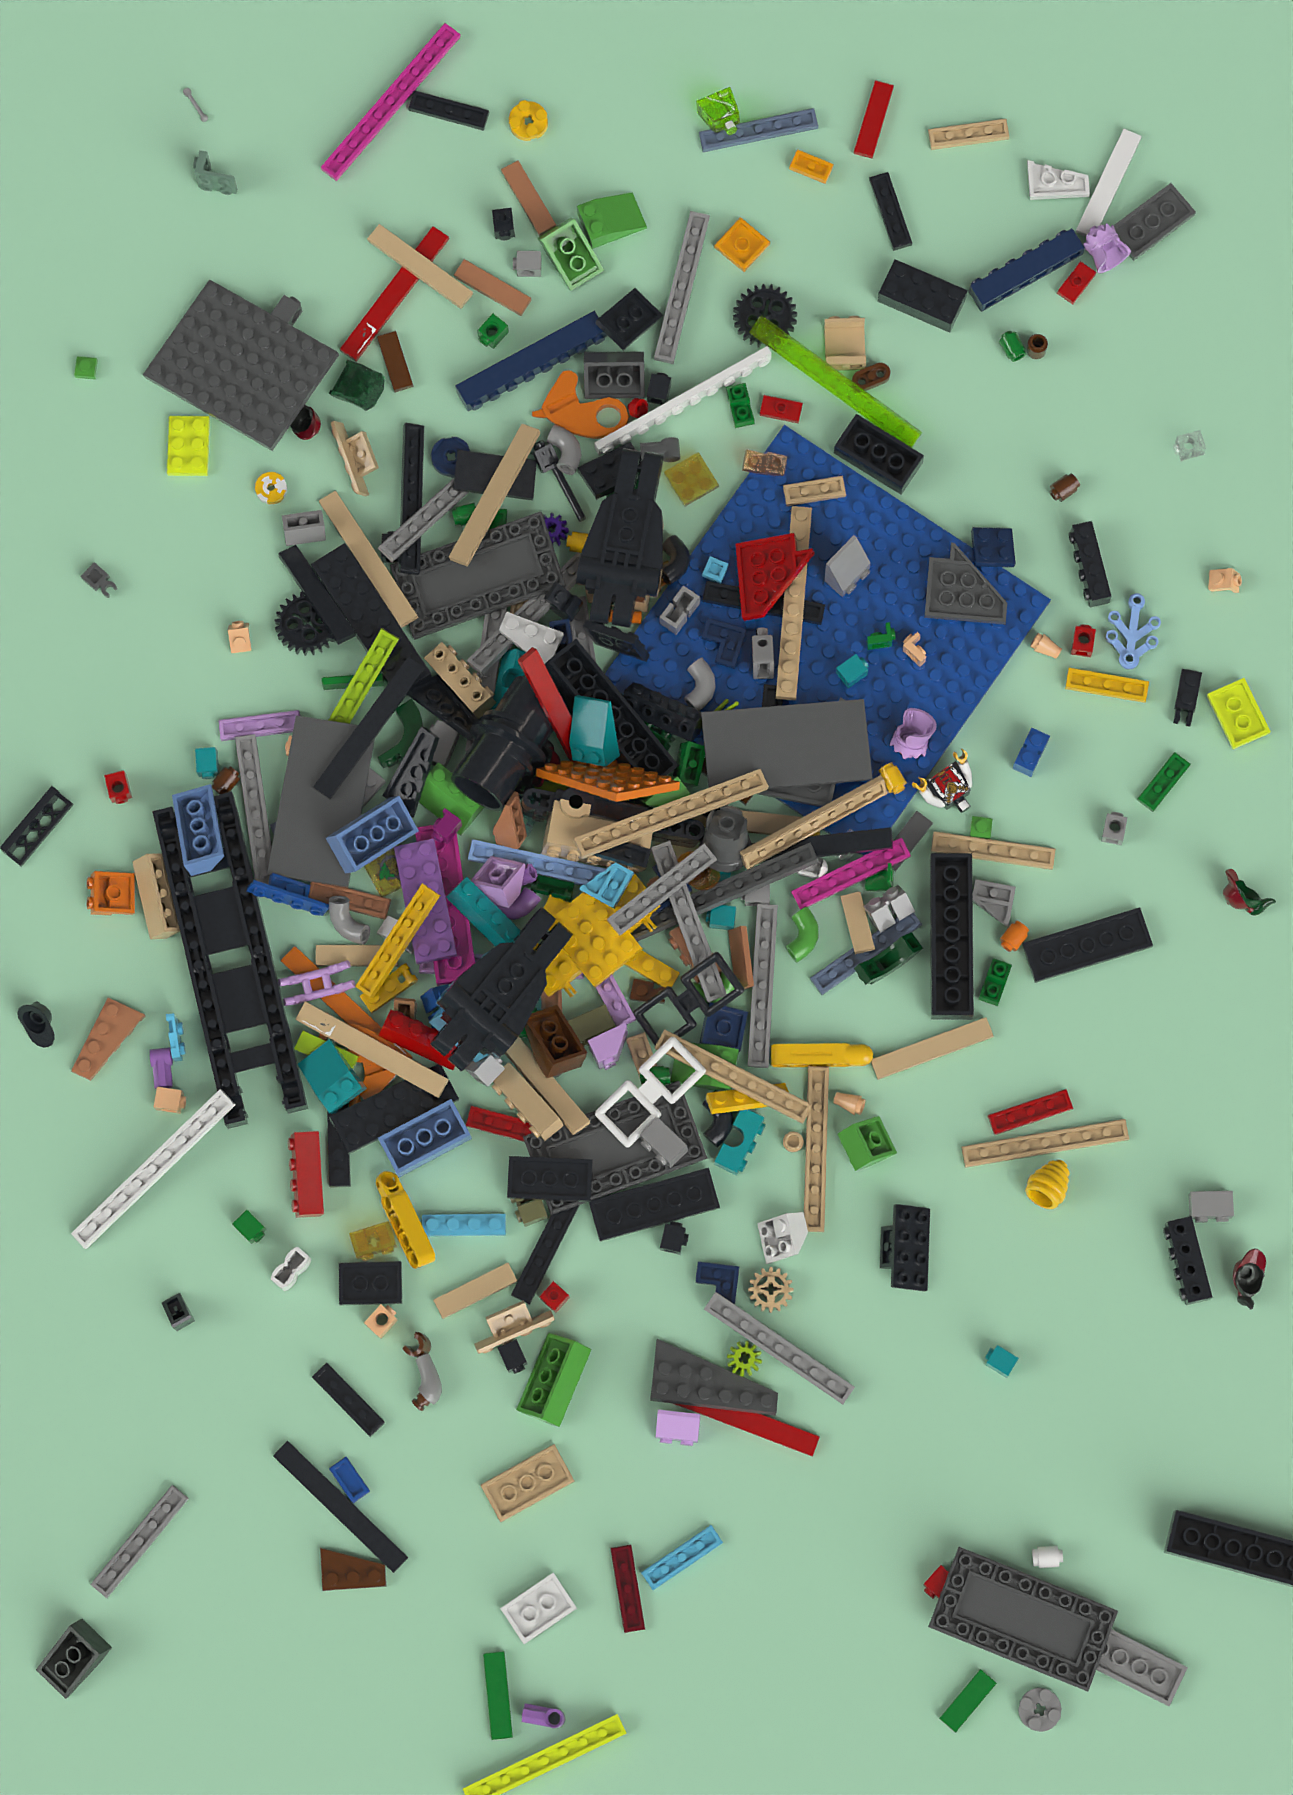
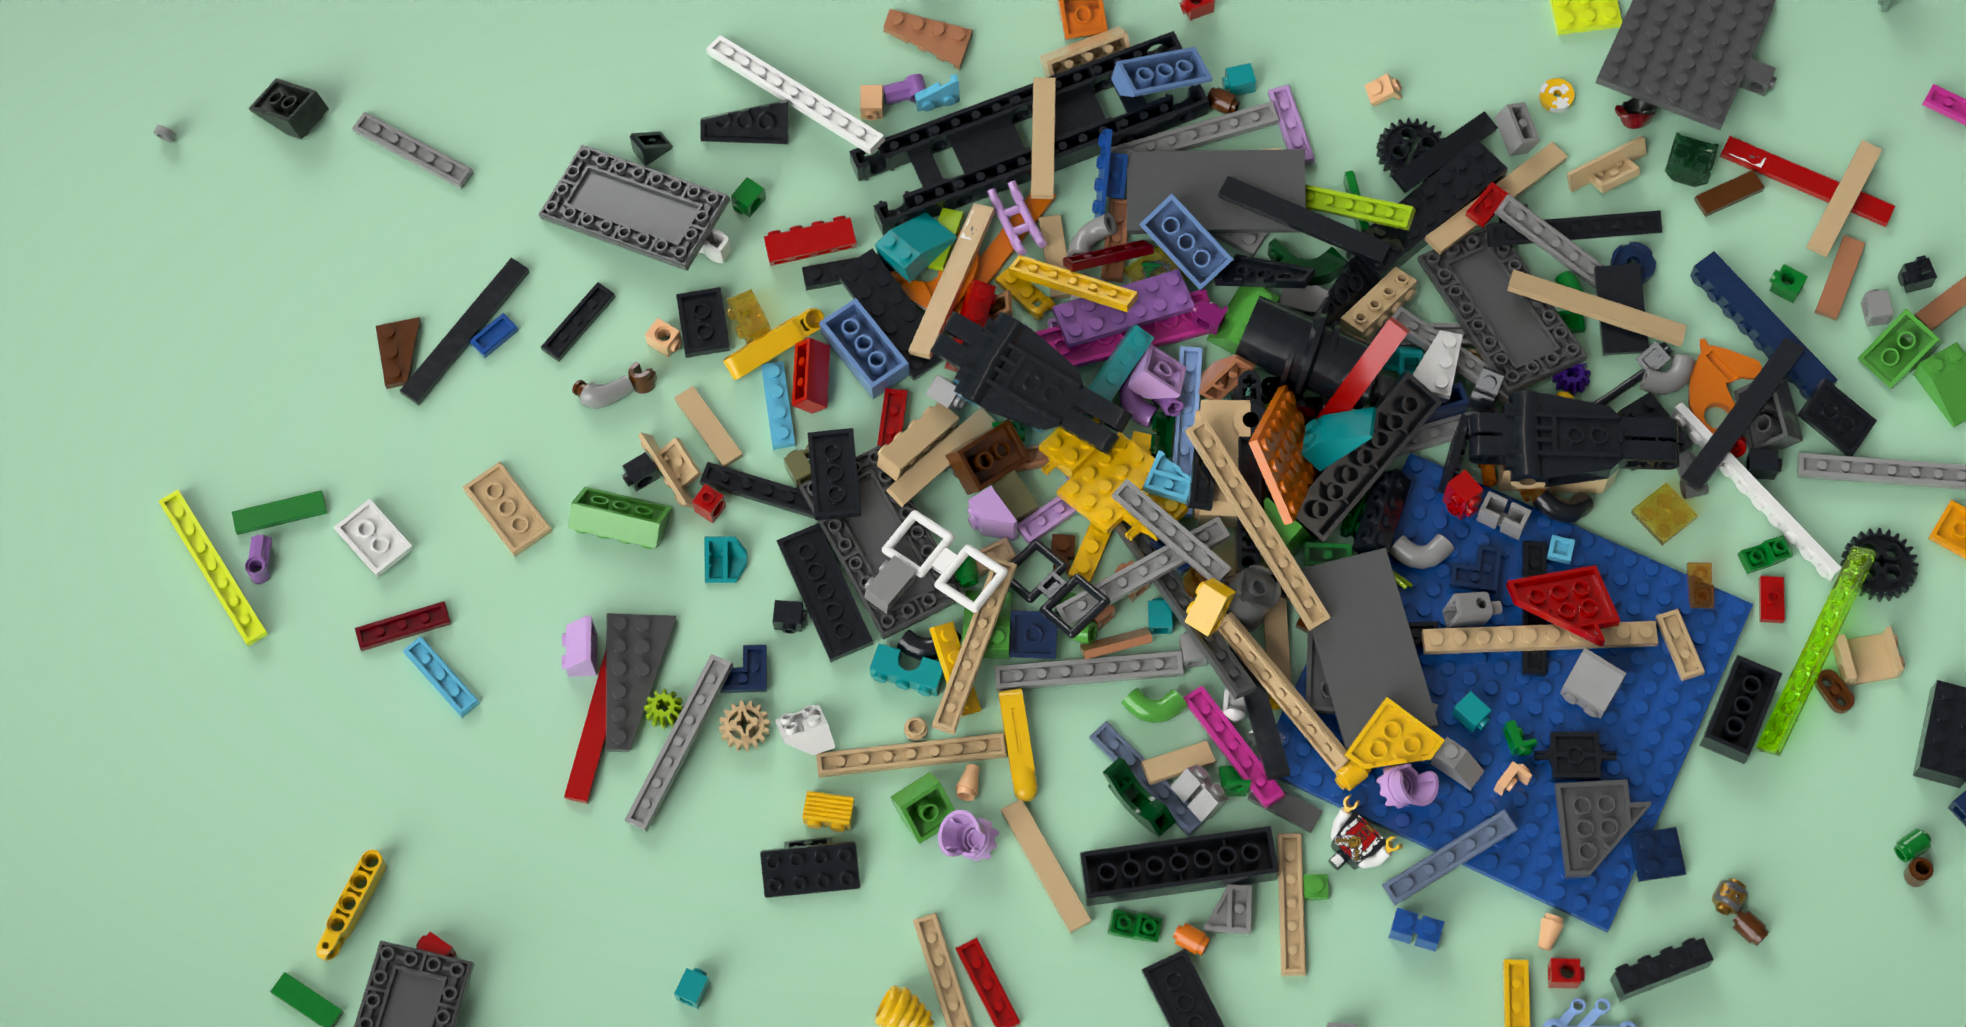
camera: 80 degrees right, 10 degrees down
(80, 1782) = (165, 133): none -> light grey tile
(175, 1213) = (750, 125): none -> black wing
(244, 945) = (1043, 138): none -> tan tile
(245, 1332) = (634, 207): none -> tile
(371, 906) = (1108, 255): none -> dark red tile
(379, 567) = (1484, 207): none -> red plate
(443, 1190) = (811, 375): none -> red brick
(610, 1291) = (724, 559): none -> teal slope
(618, 394) = (1742, 414): none -> black tile
(658, 640) = (1462, 495): none -> red brick
(736, 867) = (1209, 606): none -> yellow brick
(859, 1225) = (828, 811): none -> yellow brick
(873, 738) = (1393, 739): none -> yellow plate
(895, 692) = (1457, 763): none -> light grey slope
(901, 595) = (1575, 755): none -> black plate
(902, 1108) = (967, 836): none -> lavender hat
(913, 1675) = (333, 939): none -> yellow piece
(973, 713) = (1449, 857): none -> sand blue tile
(1036, 498) = (1730, 897): none -> head

